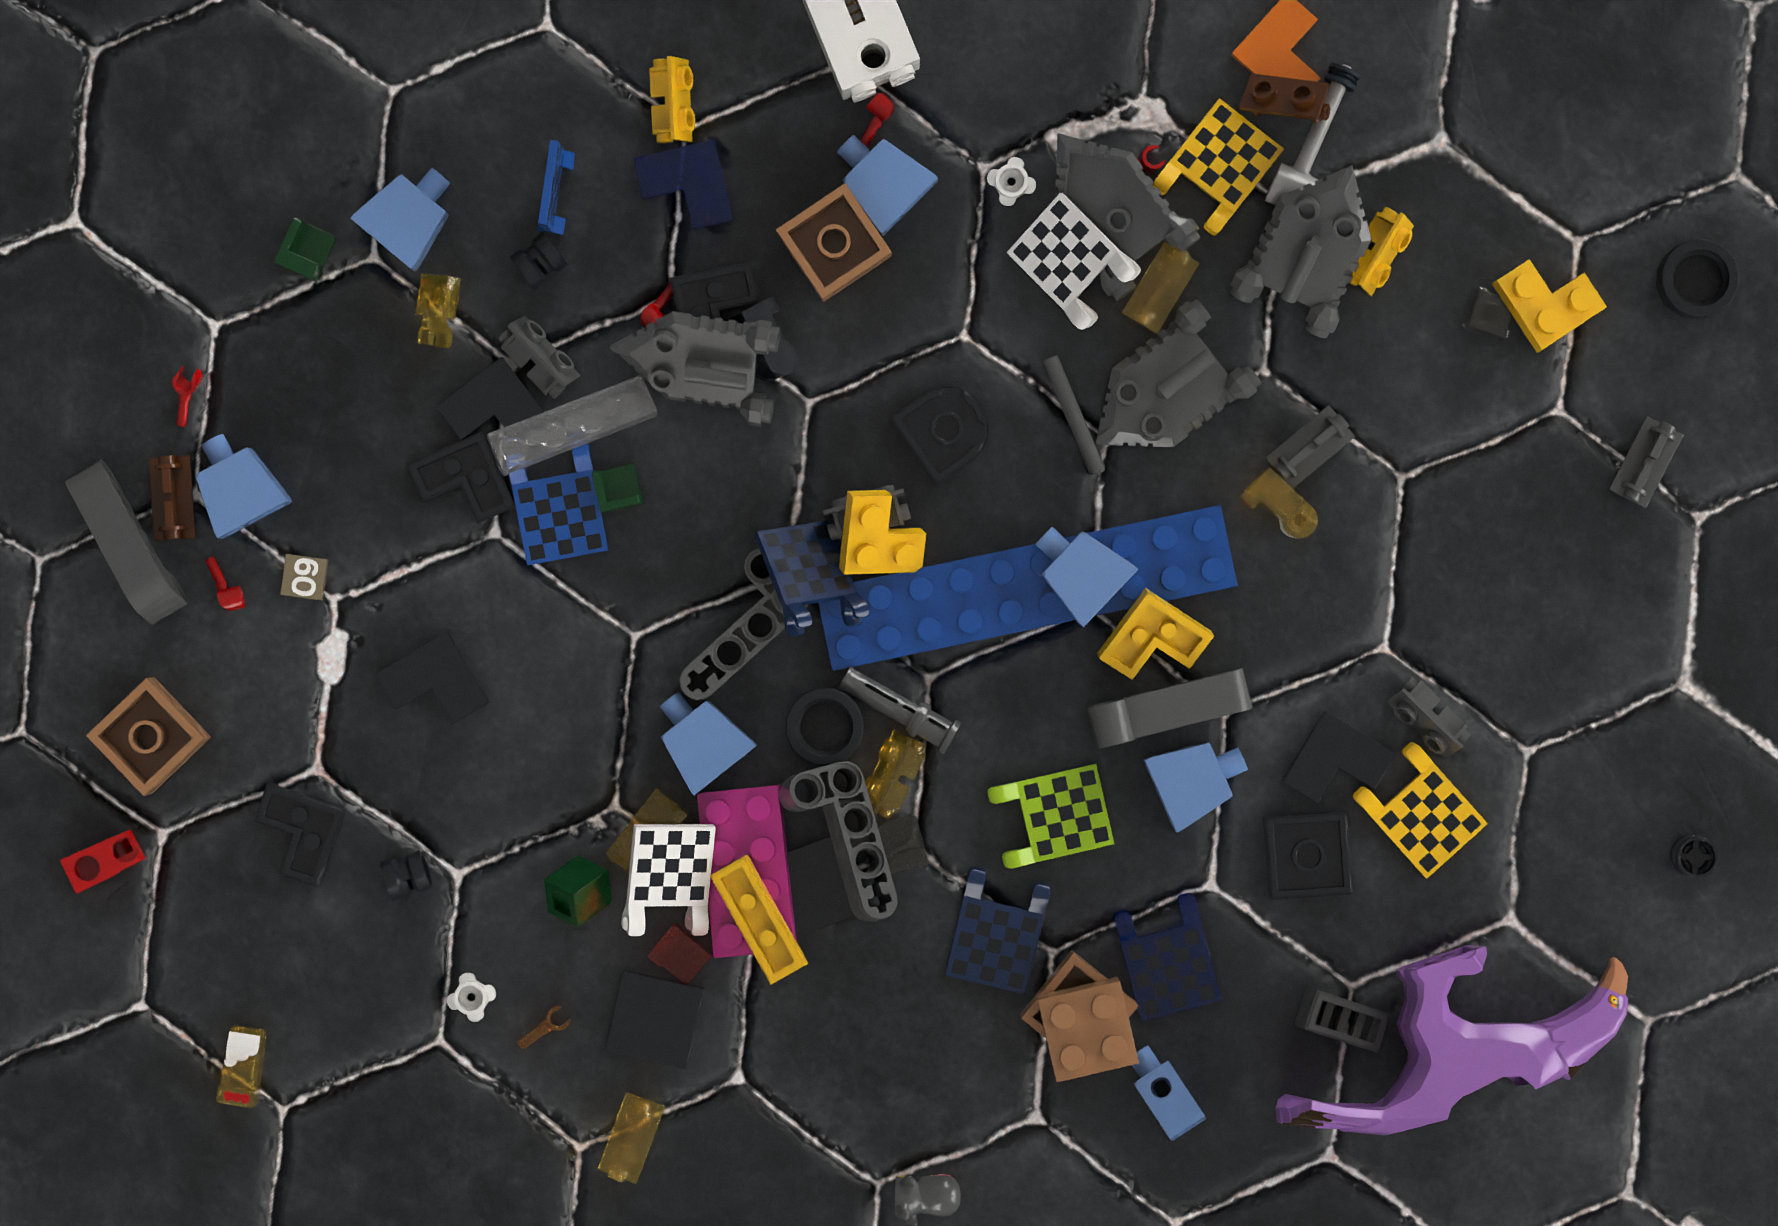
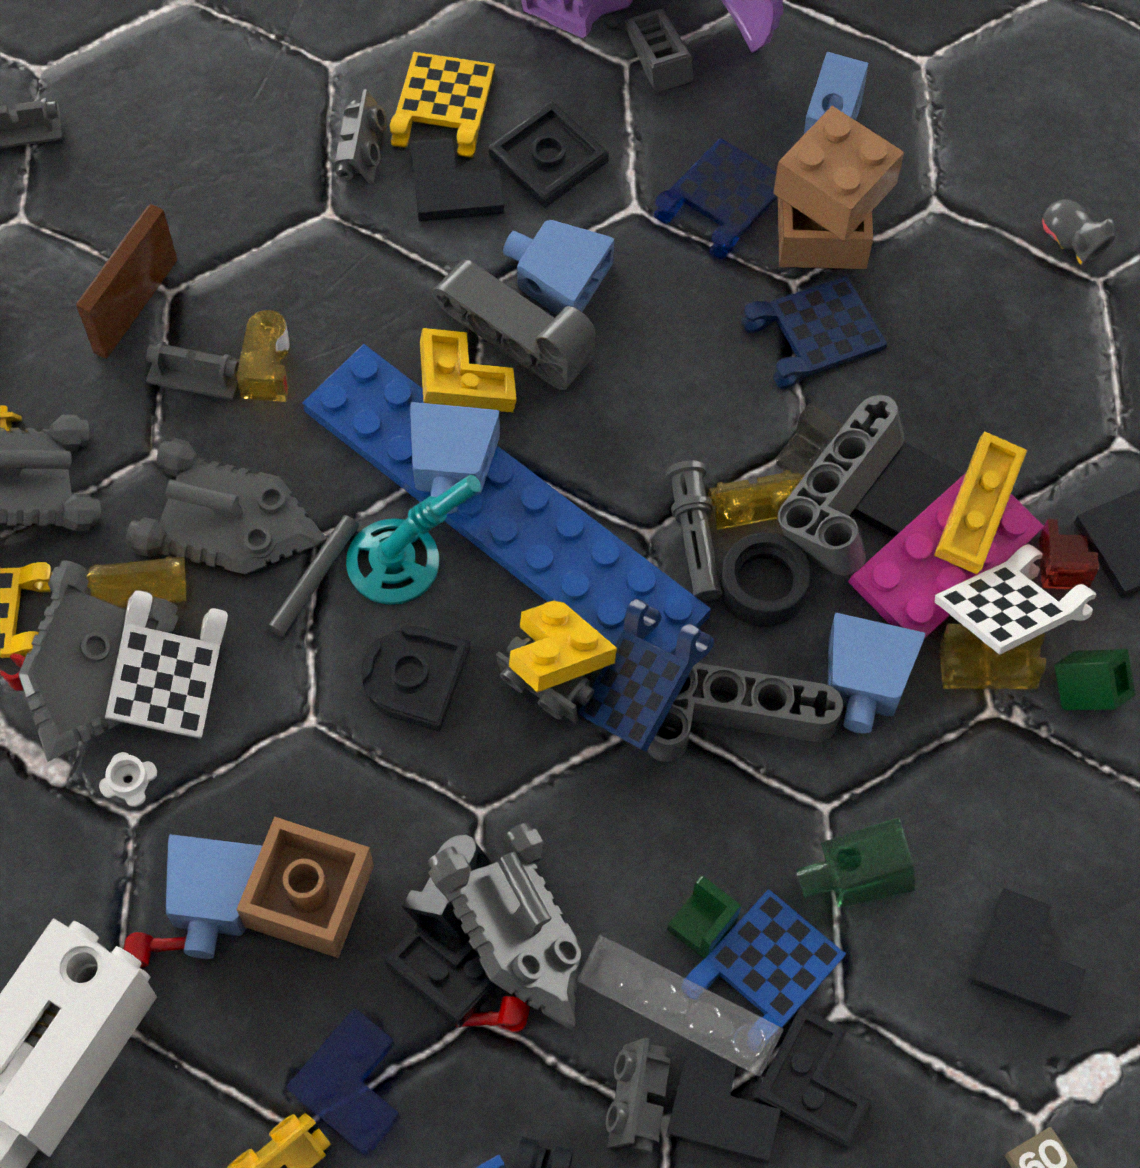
camera: 125 degrees left, 25 degrees down
(564, 632) = (880, 863): none -> clear green torso
(1034, 505) = (394, 556): none -> teal dish
(1060, 813) = (674, 351): lime flag -> none
(1415, 443) = (127, 281): none -> reddish brown tile

